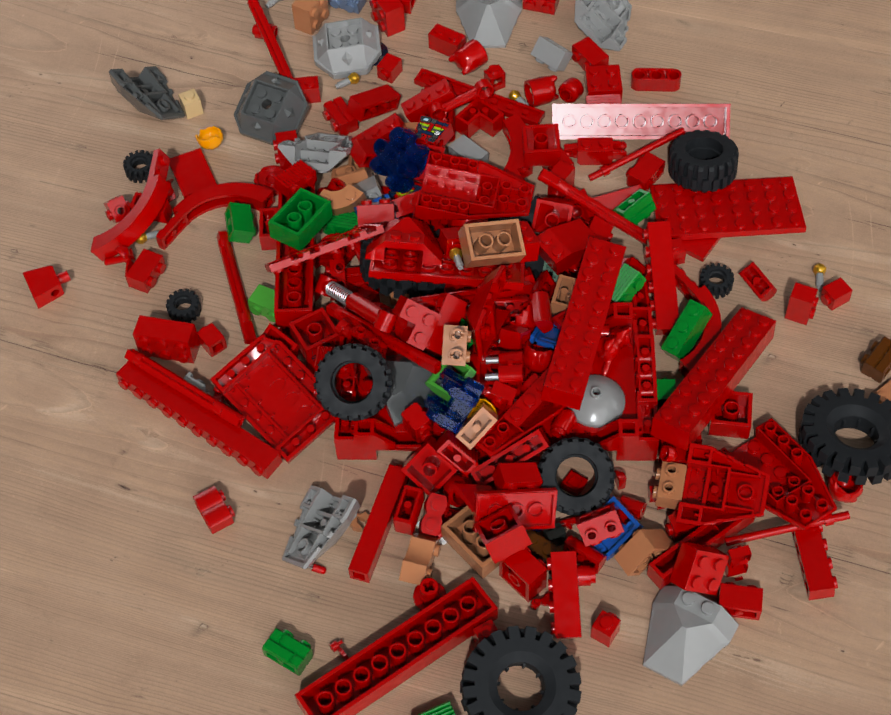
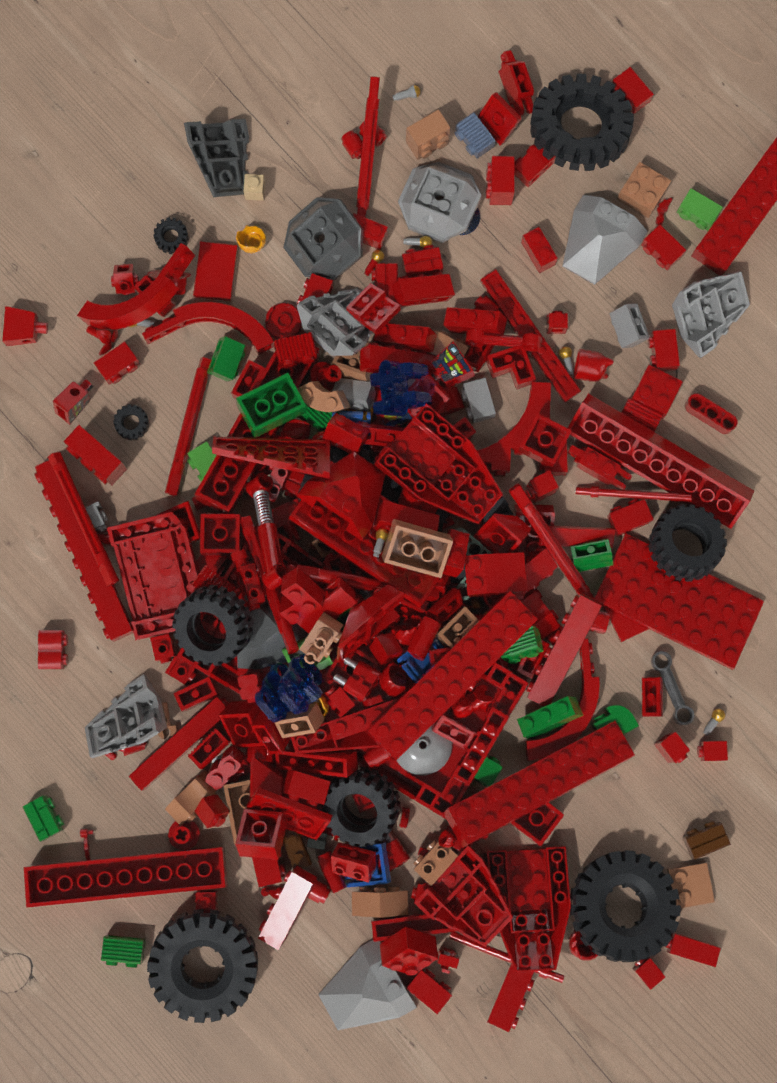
camera: 25 degrees right, 25 degrees up
(121, 314) = (72, 400): none -> red torso
(211, 339) = (136, 473): red brick -> none
(254, 44) = (352, 144): none -> red brick
(315, 456) = (163, 640): none -> red brick
(319, 104) = (377, 256): none -> piece
(335, 552) = (130, 750): none -> red bar
(341, 129) = (373, 308): none -> red slope
(344, 466) = (175, 665): none -> red brick
(360, 84) = (422, 262): none -> red brick
(369, 473) = (196, 694): none -> red brick
(389, 68) = (465, 251): red brick -> none
(444, 552) = (212, 811): none -> red brick
(469, 57) = (546, 284): red piece -> none
(571, 90) = (621, 379): red head -> none
(605, 628) = (306, 949): red brick -> none
(613, 369) = (453, 731): none -> red brick
(717, 272) = (628, 673): black tyre -> none
(741, 301) = (617, 713): none -> green brick
(766, 268) = (672, 688): none -> flat silver piece

